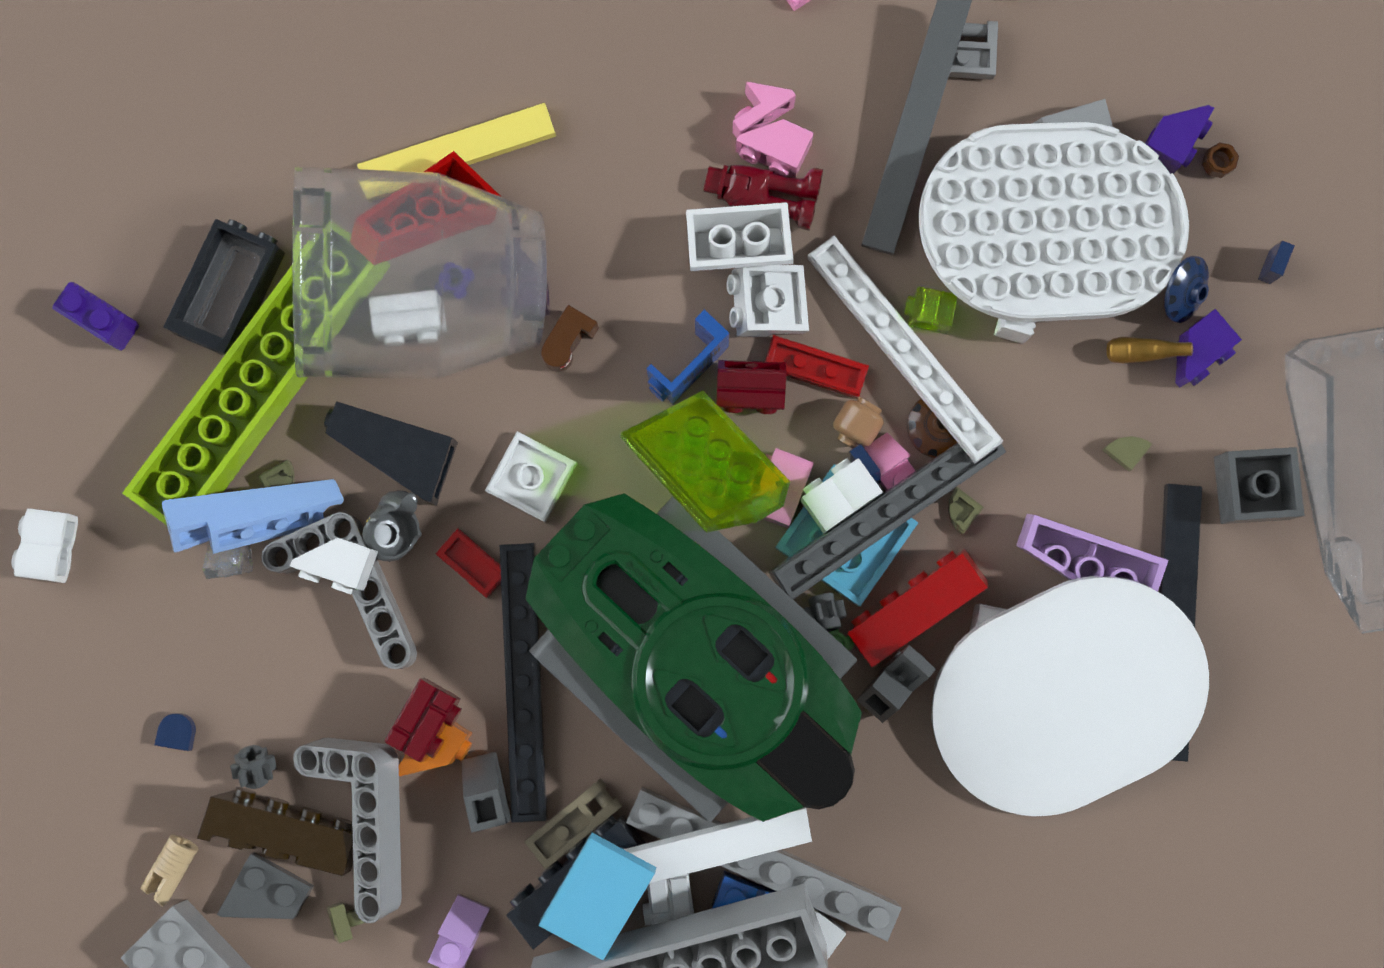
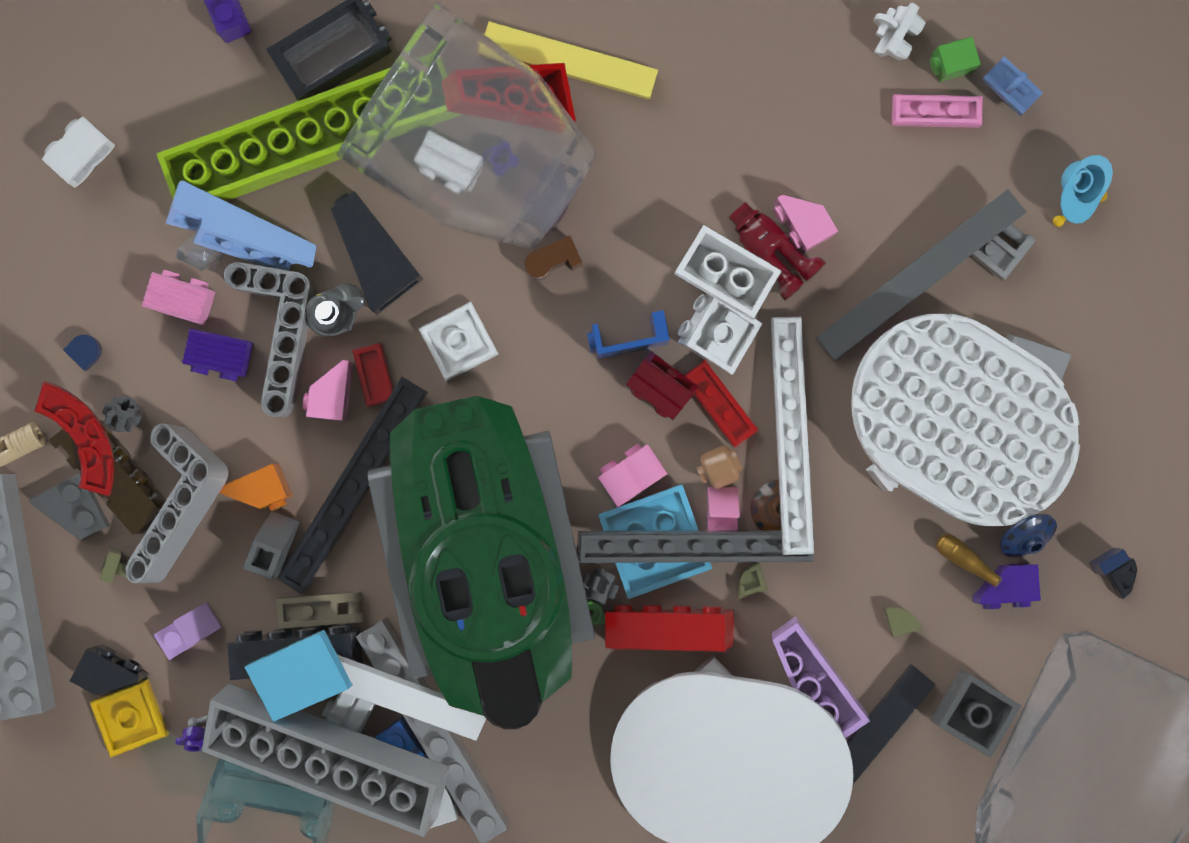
camera: 30 degrees right, 5 degrees up
(229, 804) = (86, 431): none -> red tile
(234, 618) = (178, 298): none -> bright pink brick
(279, 475) = (277, 215): olive tile -> none
(308, 645) = (217, 353): none -> dark purple brick
(337, 561) = (278, 312): white slope -> none
(423, 720) = (262, 466): dark red brick -> none
(443, 609) = (330, 394): none -> bright pink slope
(708, 464) = (587, 424): clear neon green slope -> none
(768, 105) = (822, 185): bright pink slope -> none
(840, 495) = (669, 511): white brick -> none
(860, 452) = (702, 502): dark blue tile -> none
(895, 683) = (614, 671): dark grey brick -> none
(930, 309) = (831, 420): clear neon green brick -> none
(1177, 134) = (1104, 417): dark purple slope -> none
(1220, 160) = (1125, 457): reddish brown tile -> none
(1299, 270) = (1123, 578): none -> black tile

